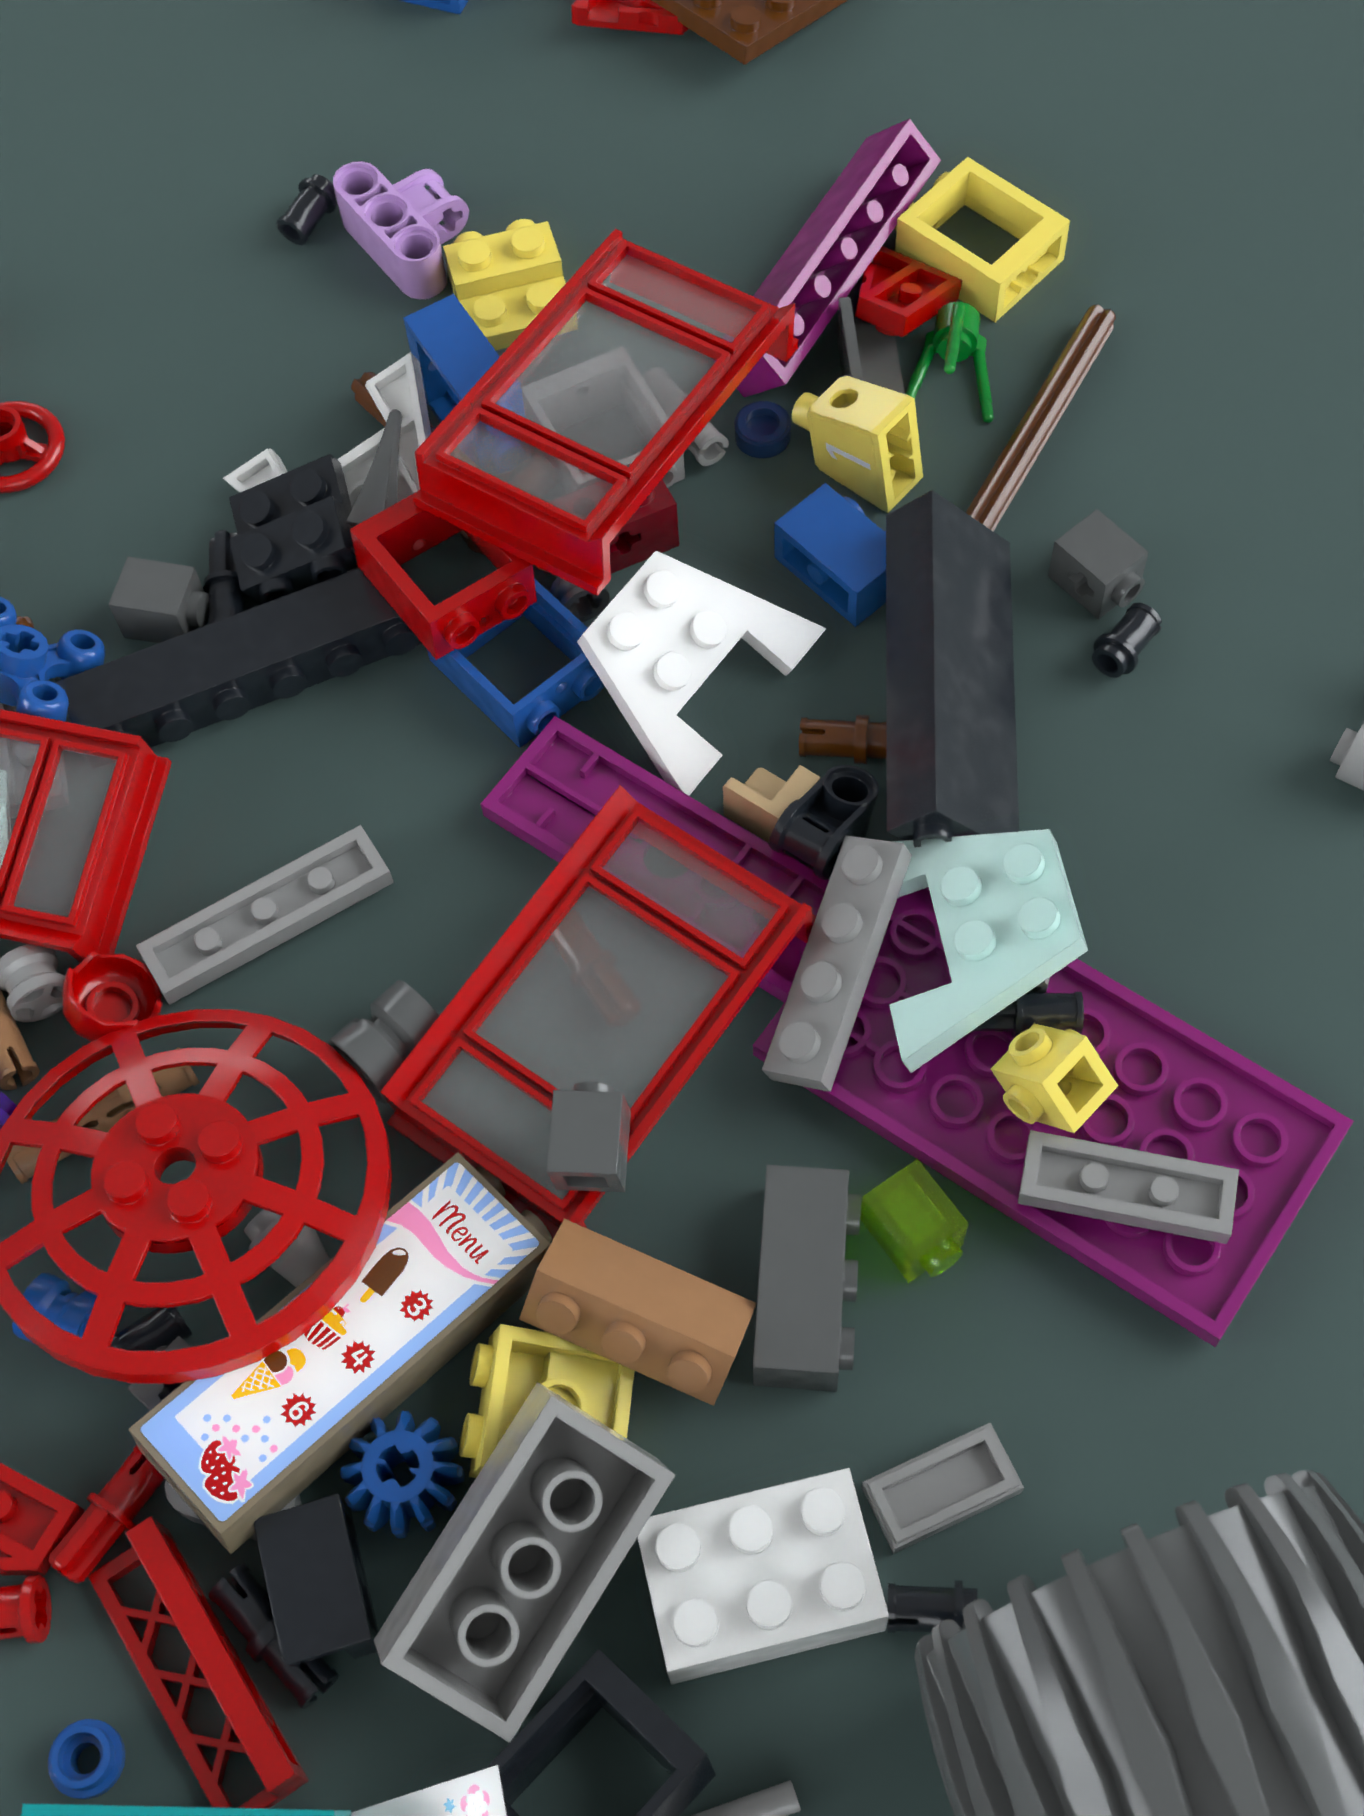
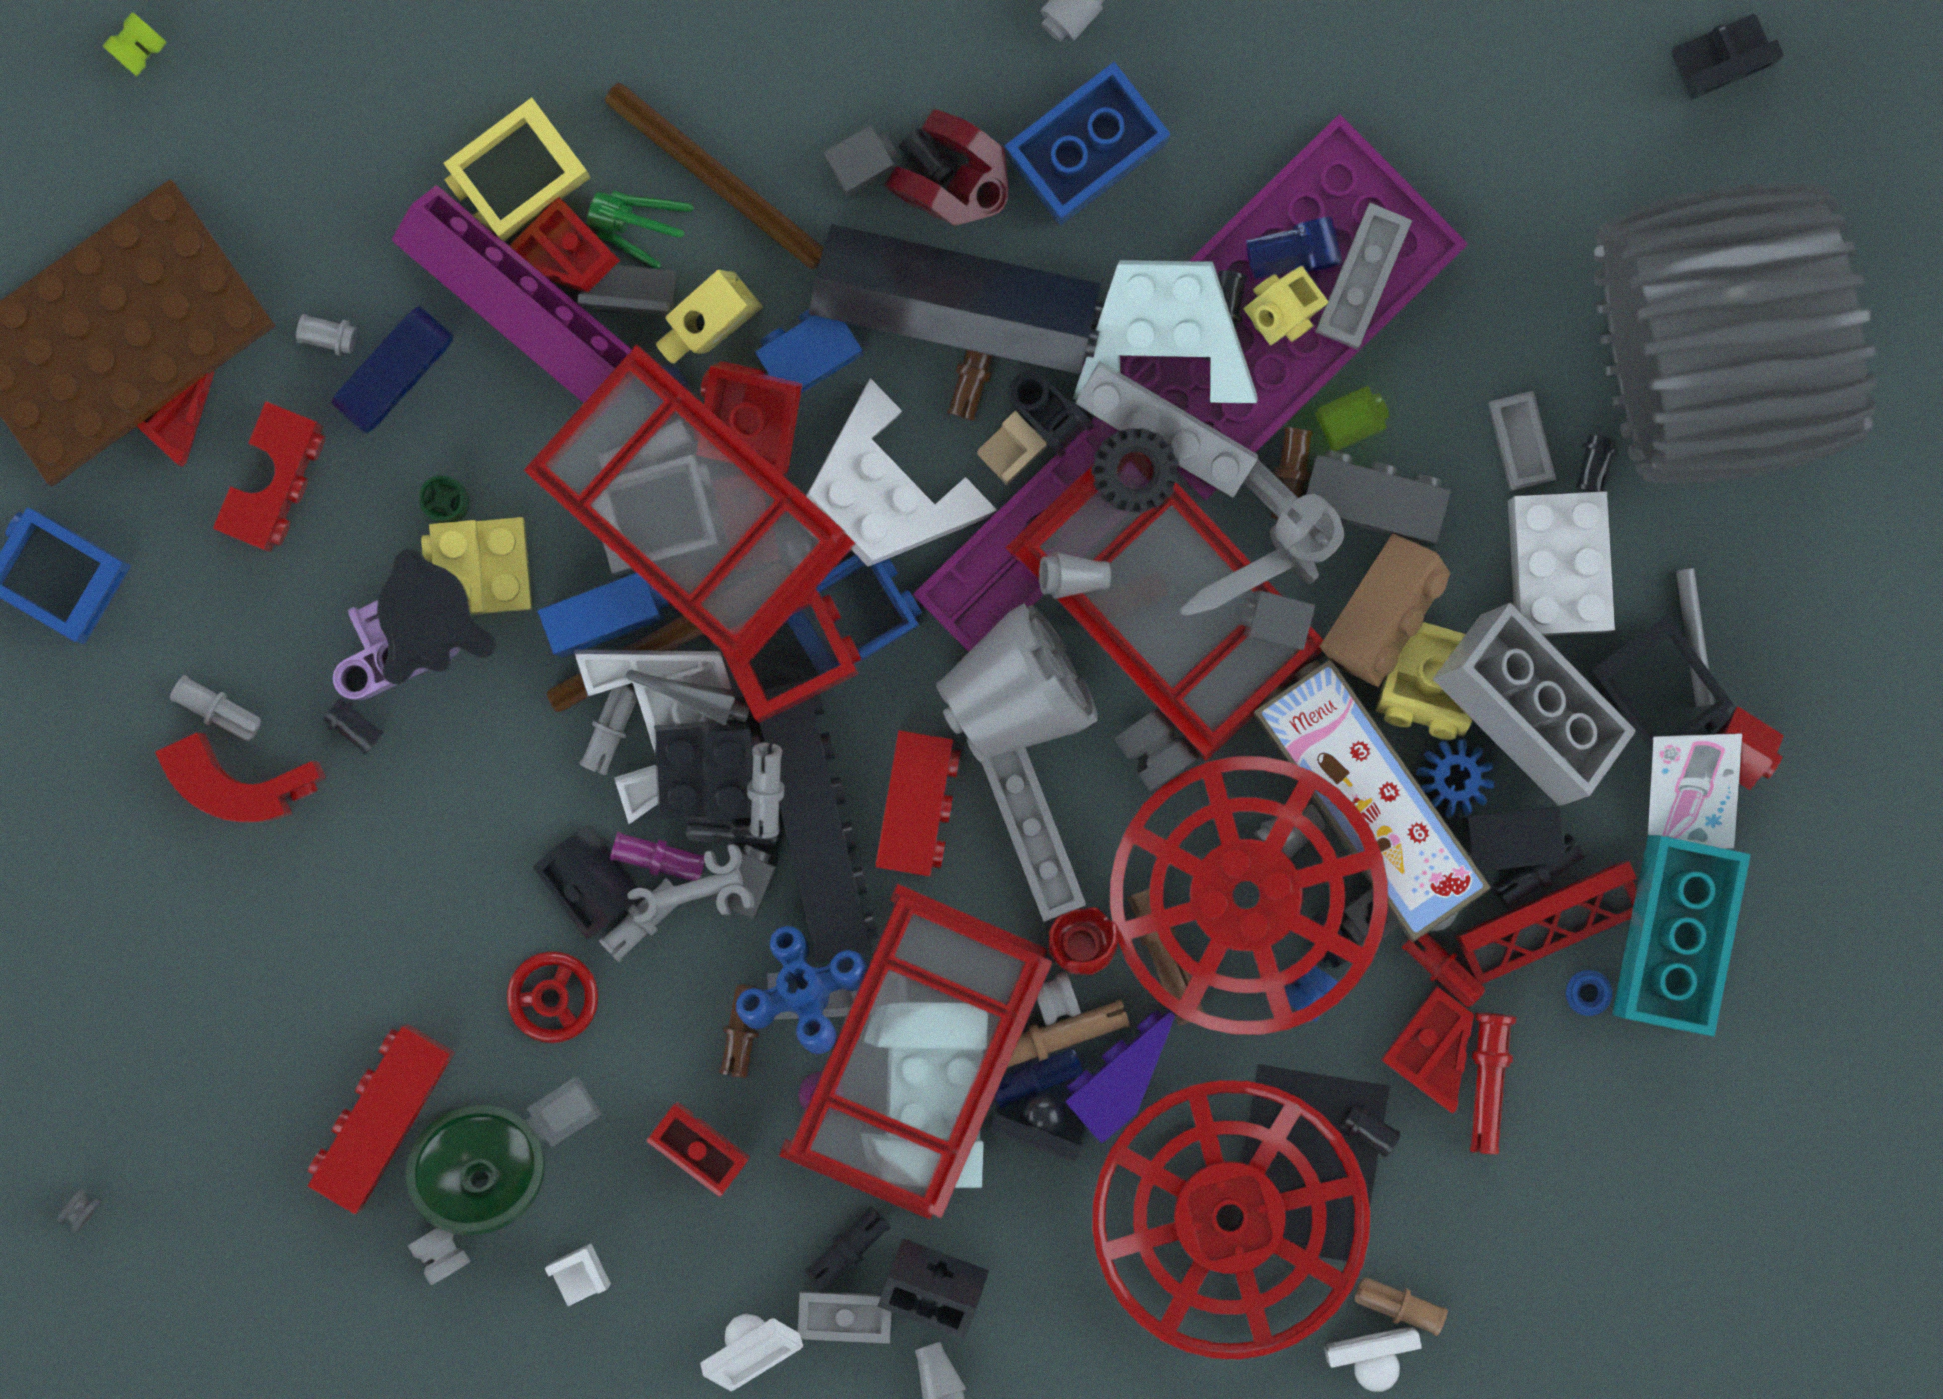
camera: 80 degrees left, 25 degrees up
(106, 511) = (628, 932): none -> light grey pin
(146, 559) = (725, 882): none -> light grey bar
(153, 454) = (587, 881): none -> black panel
(185, 511) = (657, 857): none -> magenta pin
(218, 104) = (207, 786): none -> red arch
(270, 578) = (765, 790): none -> light grey pin
(280, 769) = (917, 803): none -> red brick
(312, 93) = (215, 708): none -> light grey axle
(323, 436) = (609, 729): none -> light grey axle
(433, 224) = (425, 617): none -> black tile
(448, 841) = (1016, 688): none -> light grey cone
(579, 231) = (439, 493): none -> dark green wheel
(602, 852) = (1072, 575): none -> light grey cone
(609, 101) = (262, 515): none -> red arch
(696, 1164) = (1252, 576): none -> light grey sword
(721, 172) = (392, 369): none -> clear blue beam
(741, 488) = (755, 408): none -> red plate
(746, 123) = (327, 334): none -> light grey pin
(747, 1152) = (1298, 517): none -> light grey piece
(765, 865) = (1163, 464): none -> black tyre
(854, 1153) = (1294, 460): none -> reddish brown pin
(1074, 638) = (984, 168): none -> dark red piece
(1149, 1101) = (1306, 245): none -> clear blue piece
(1204, 803) = (1087, 143): none -> blue brick

